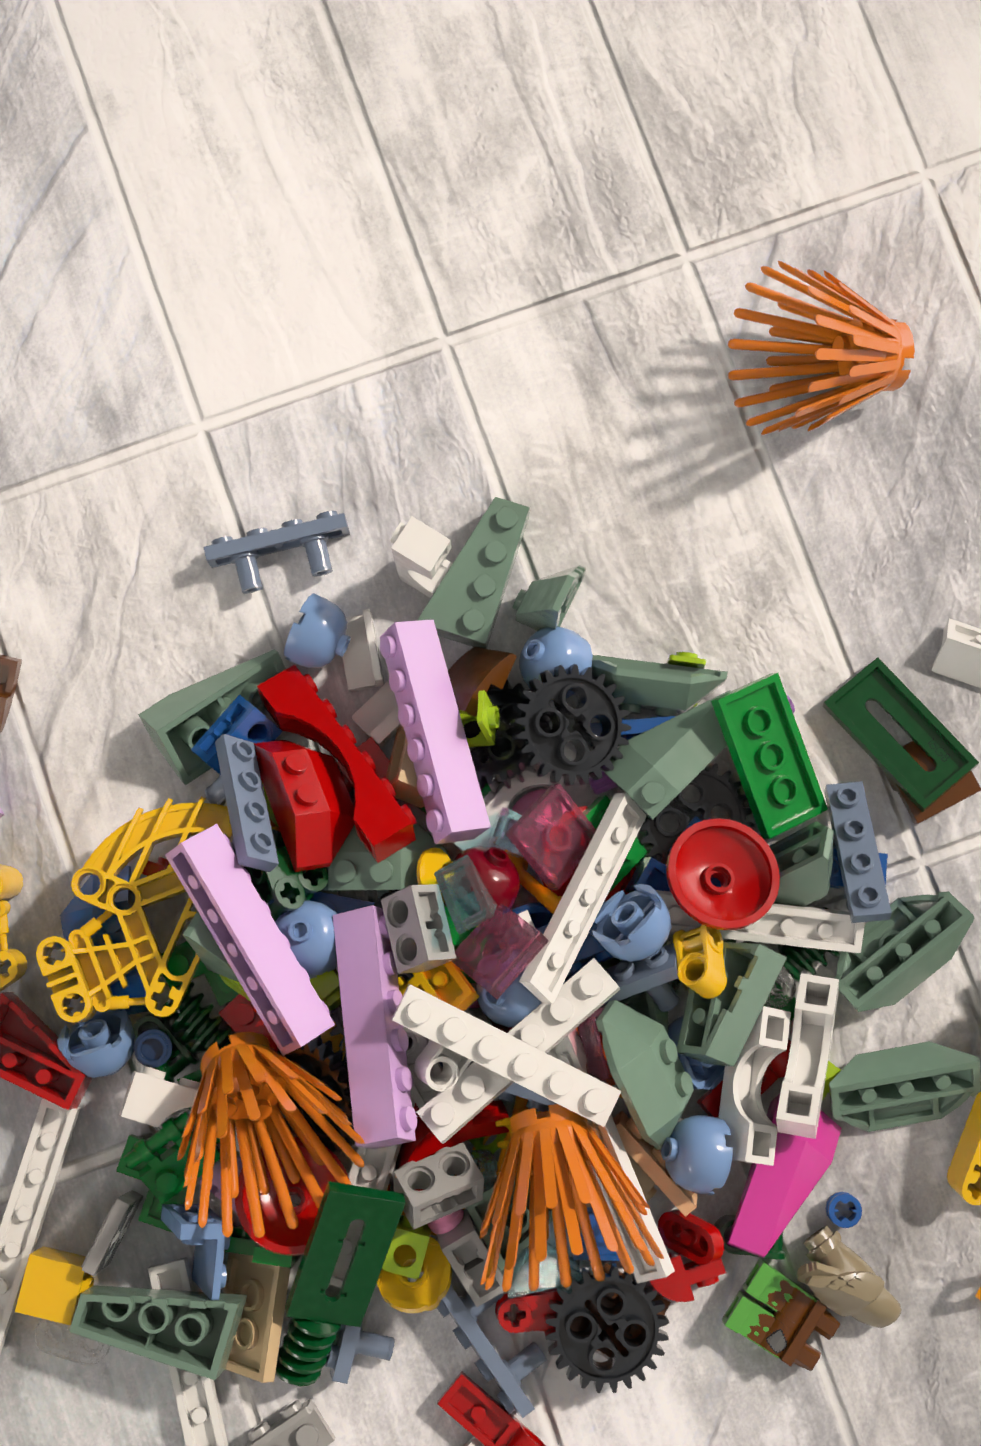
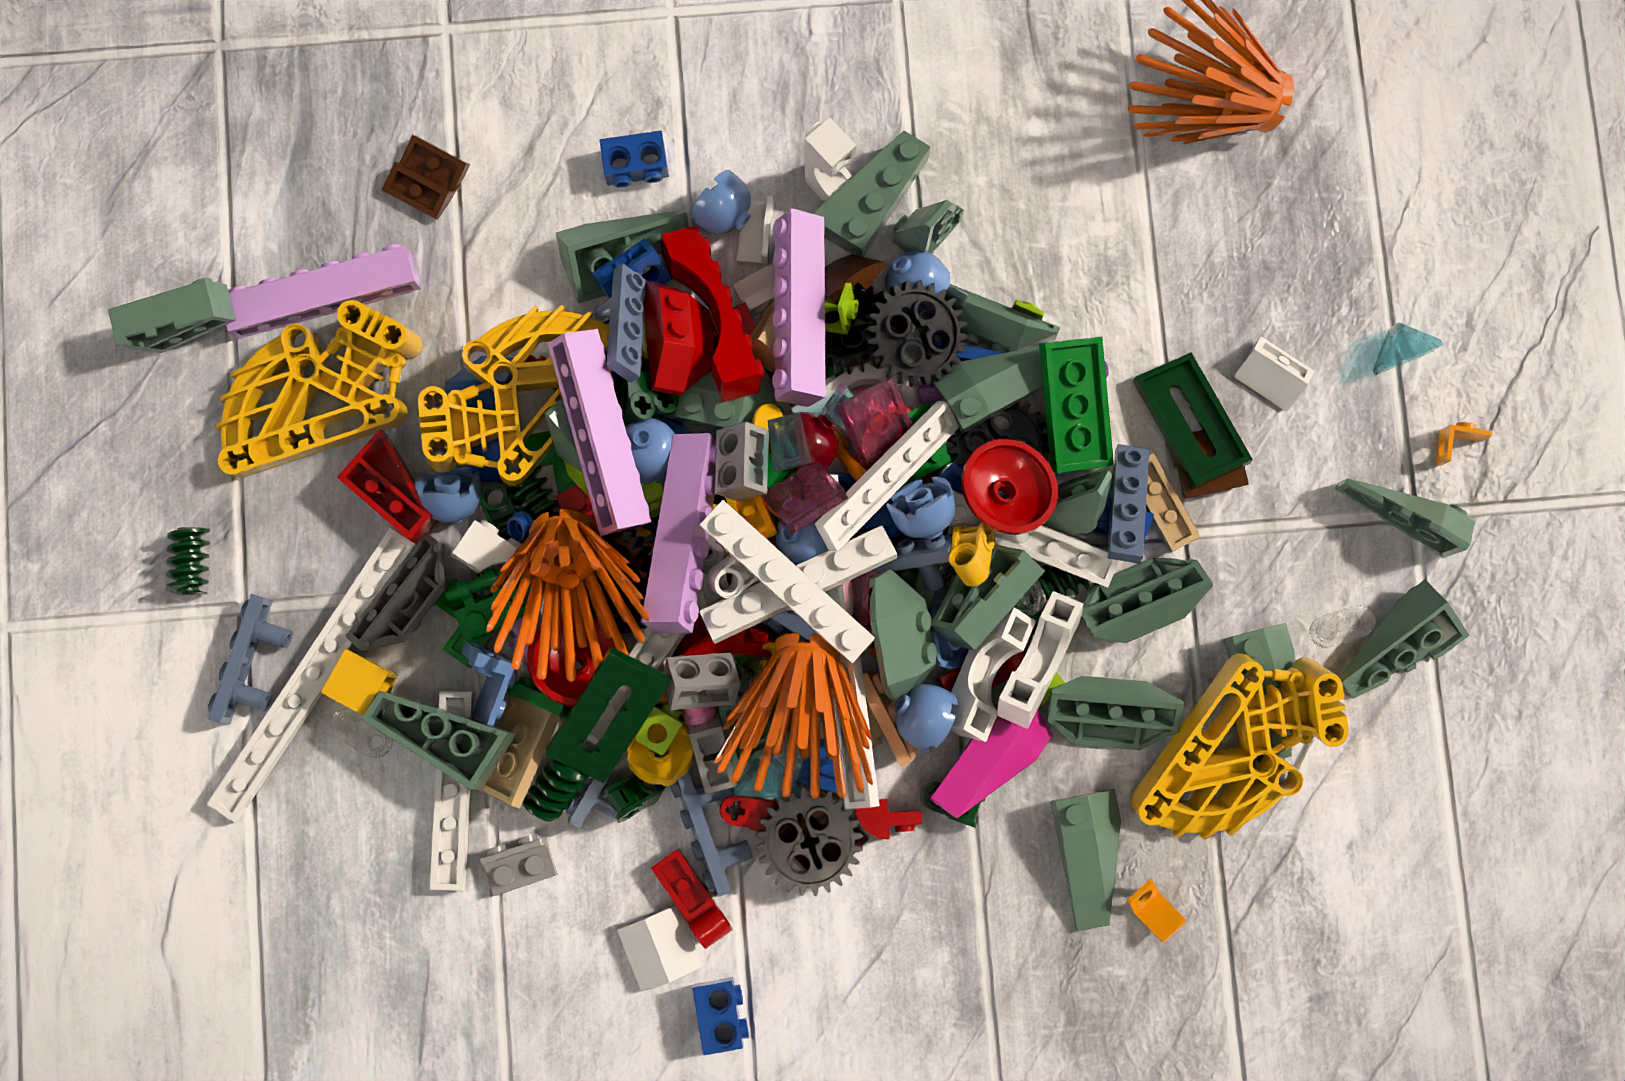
camera: 10 degrees right, 0 degrees up
(78, 1178) = (403, 598): none -> dark grey wedge
(111, 1232) = (418, 651): light grey tile -> none
(153, 1048) = (493, 508): dark blue plate -> none
(188, 1060) = (519, 526): none -> blue plate
(200, 596) = (634, 149): none -> blue brick
(262, 542) = (698, 119): sand blue plate -> none
(392, 1332) = (630, 796): none -> dark green piece
(691, 1237) = (901, 787): red plate -> none
(791, 1322) = (965, 882): hips -> none
(842, 1221) = (1033, 812): blue bush -> none
(846, 1281) = (1021, 860): dark tan animal -> none
(898, 840) = (1169, 513): none -> tan plate
(915, 1241) = (1088, 847): none -> sand green wedge

